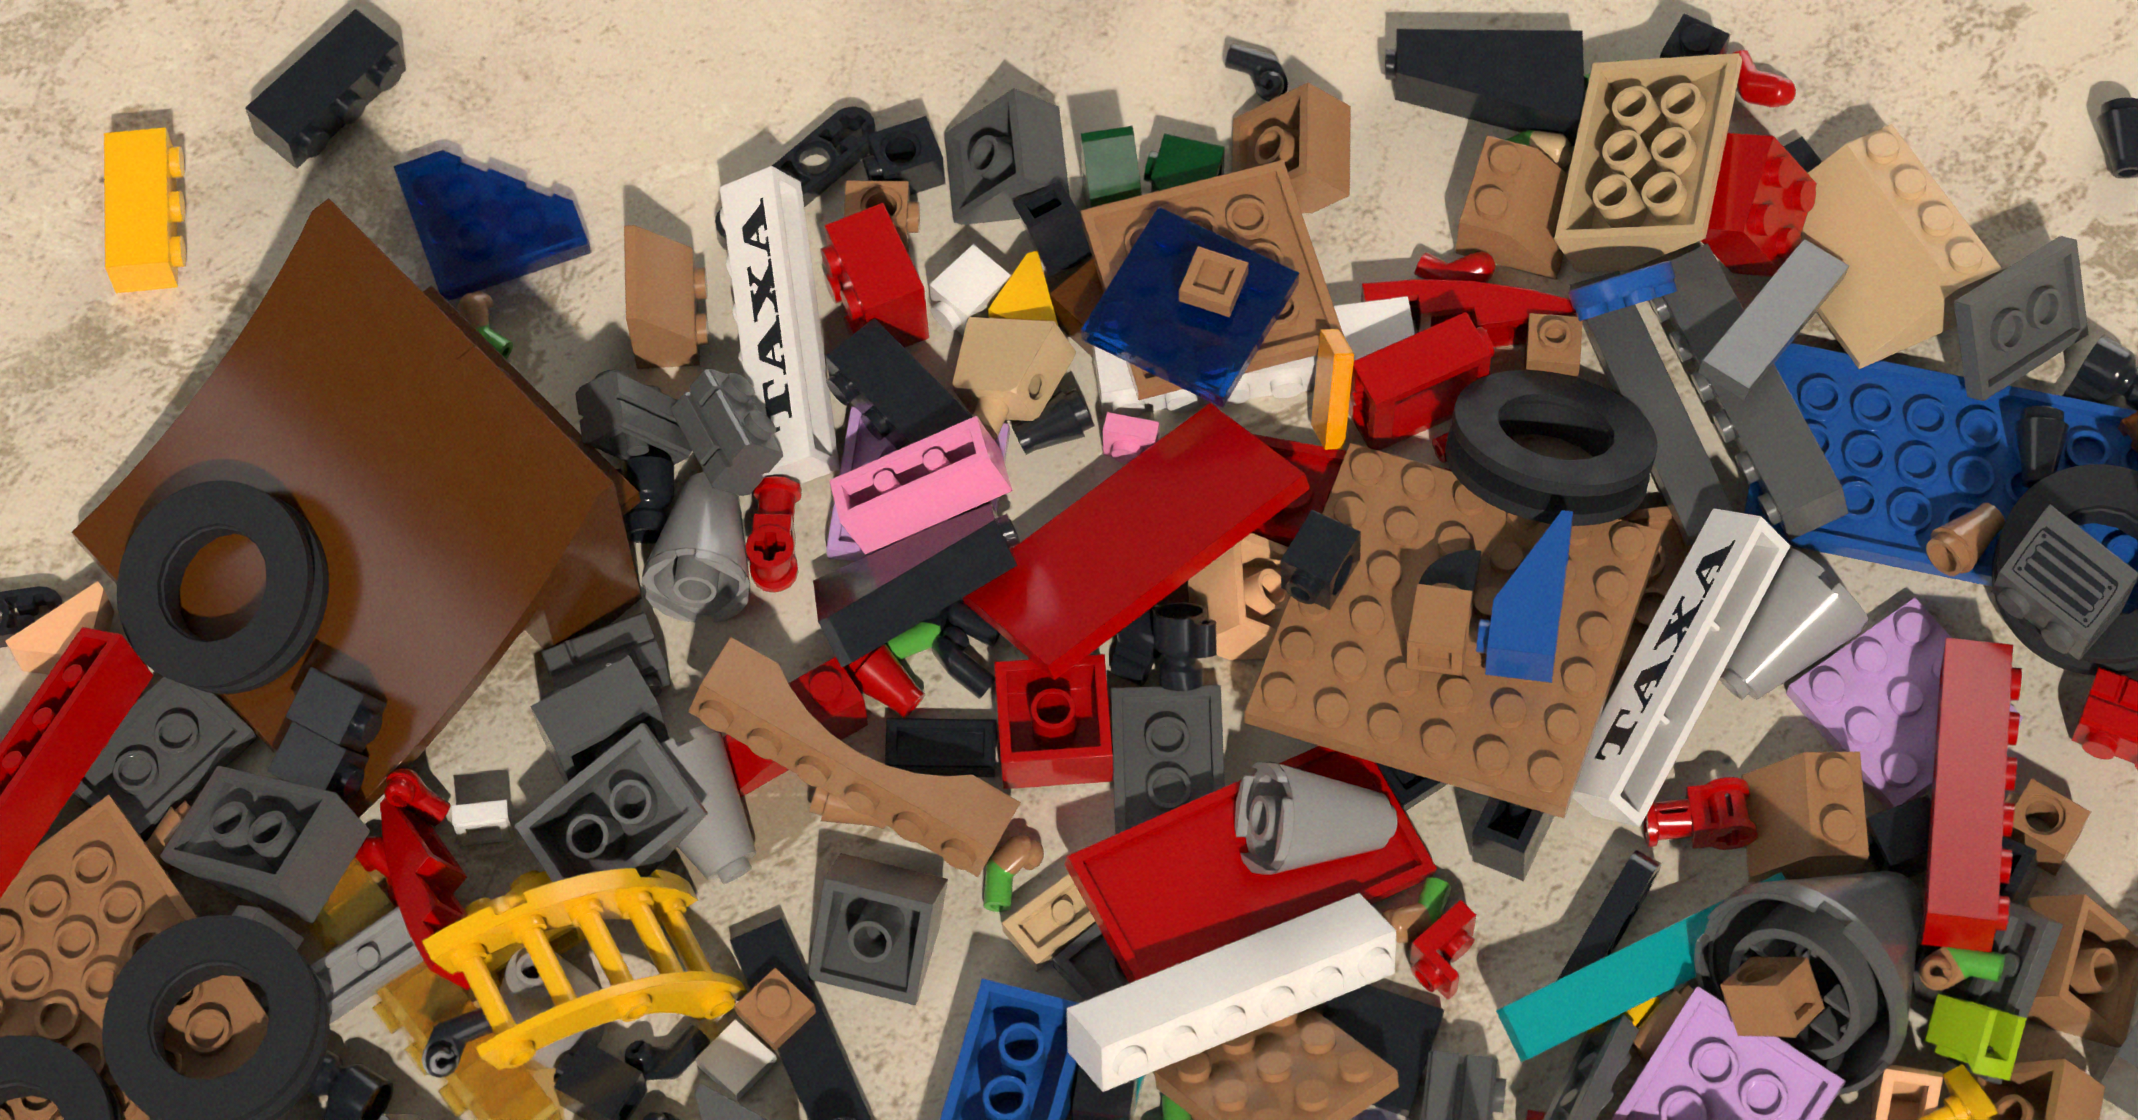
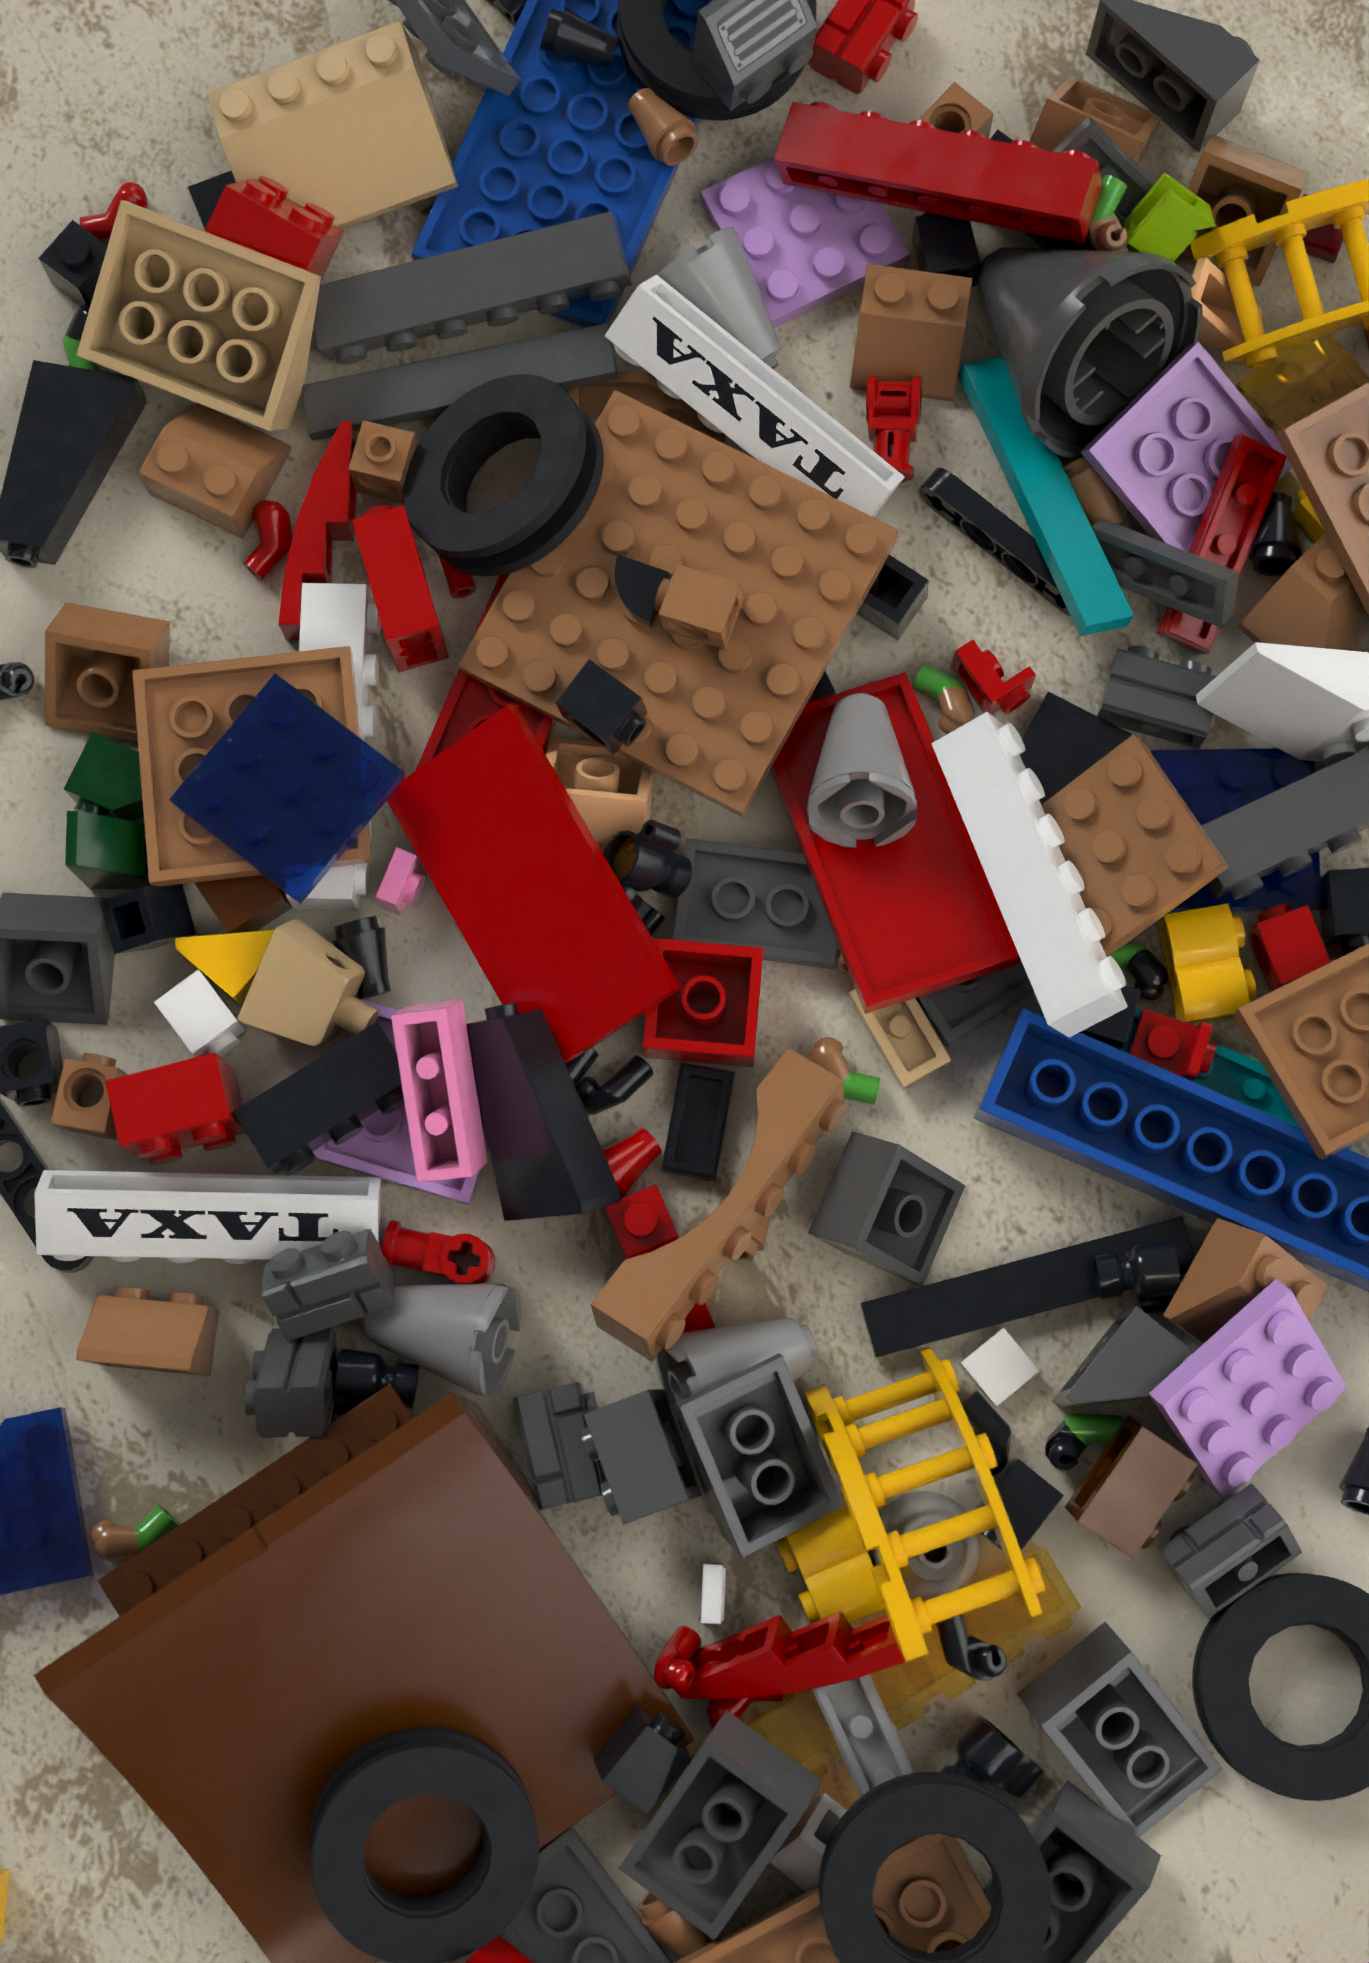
camera: 80 degrees left, 15 degrees up
(337, 710) = (592, 1731): black brick -> none
(775, 1009) = (961, 1320): medium nougat plate -> none
(1213, 281) = (281, 753): medium nougat plate -> none
(1332, 389) = (397, 670): light orange tile -> none
(1527, 610) = (702, 519): blue slope -> none
(1549, 143) = (142, 431): tan arm -> none
(1623, 290) = (344, 373): blue tile -> none
(1772, 996) = (1127, 379): medium nougat brick -> none
(1773, 319) = (410, 239): tile -> none

